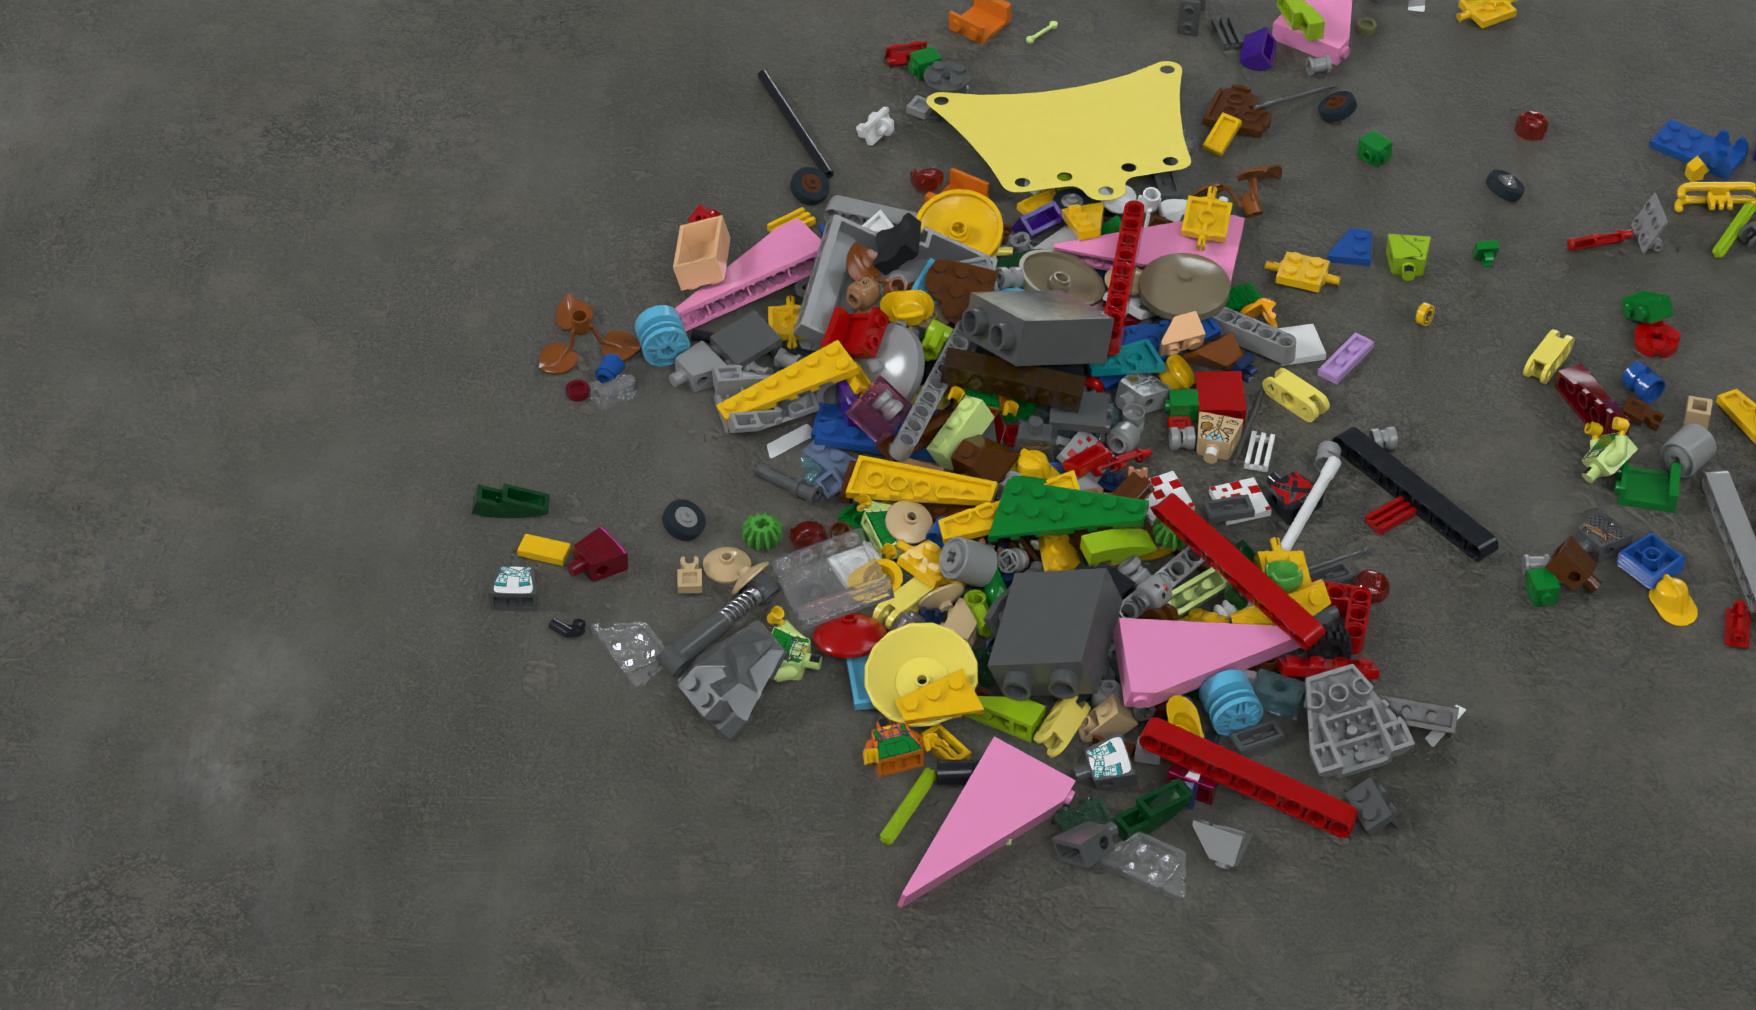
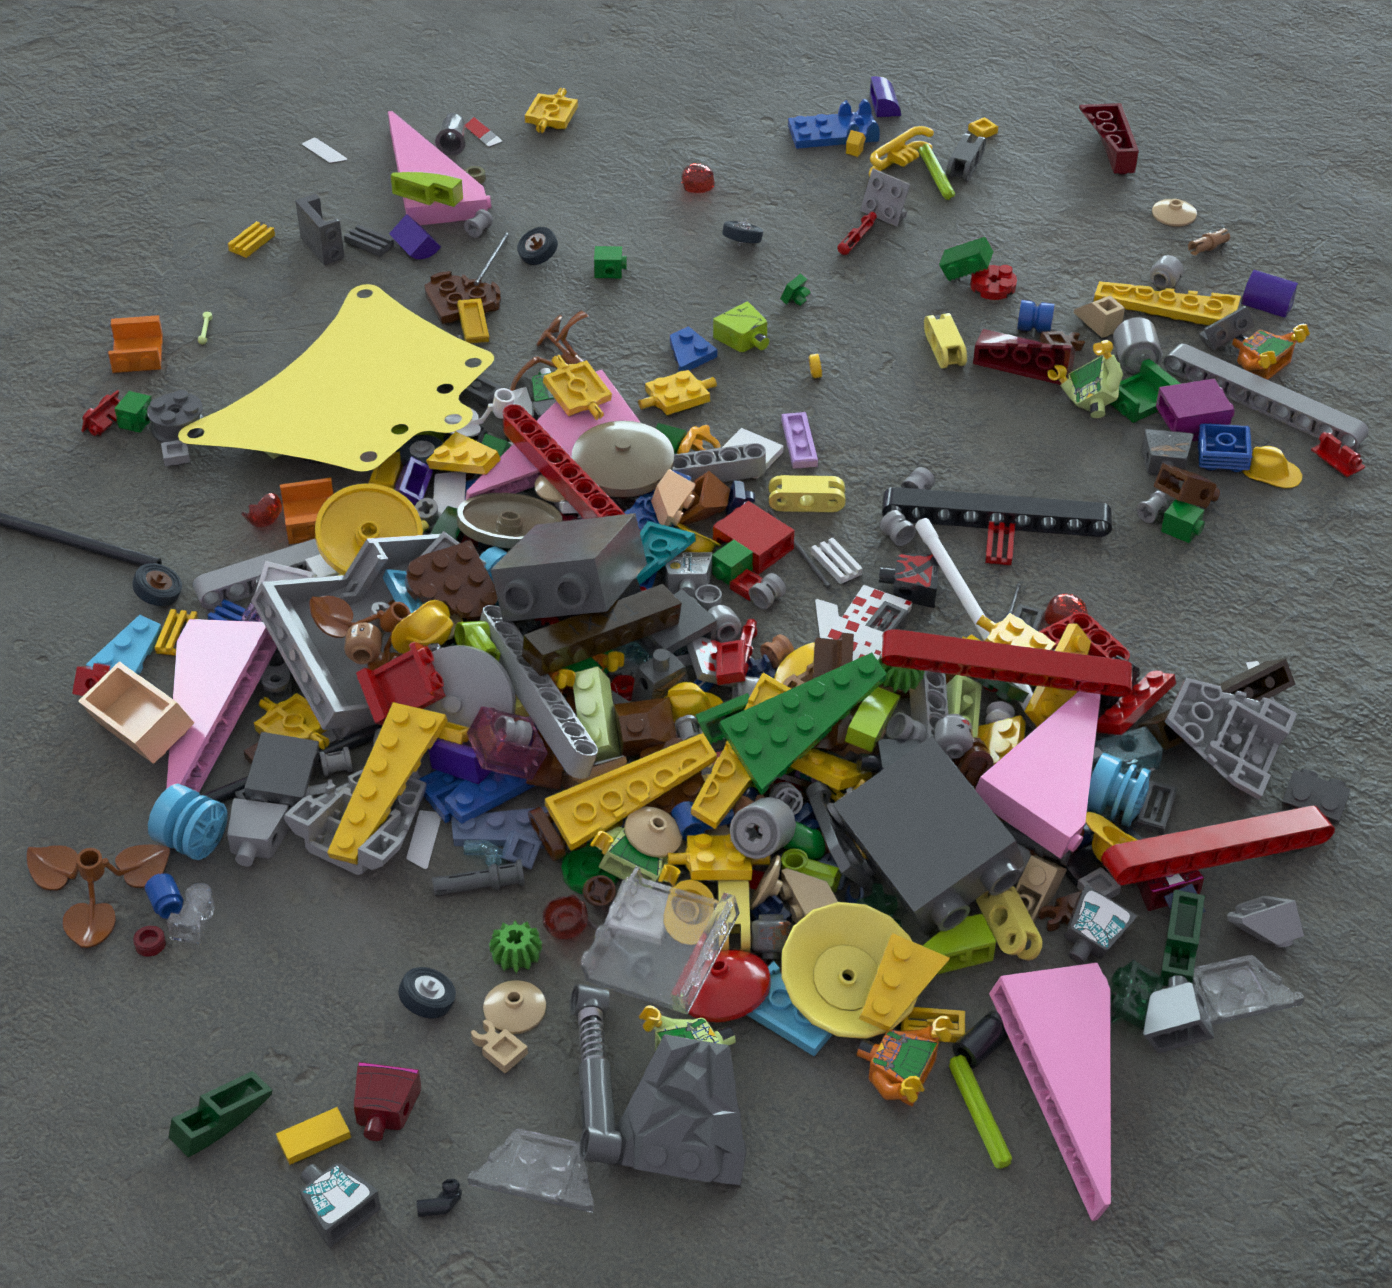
camera: 45 degrees left, 0 degrees up
(746, 217) = (130, 645): none -> medium azure wing
(746, 574) = (568, 1000): tan dish -> none
(876, 126) = (155, 492): white hips -> none
(898, 244) = (353, 573): black brick -> none
(1009, 277) = (479, 539): light grey wheel -> none
(1201, 486) = (826, 616): none -> white sticker
(1217, 436) = (795, 567): tan torso -> none
(1285, 574) = (1039, 638): bright green hair -> none
(1666, 517) = (1192, 404): none -> magenta brick

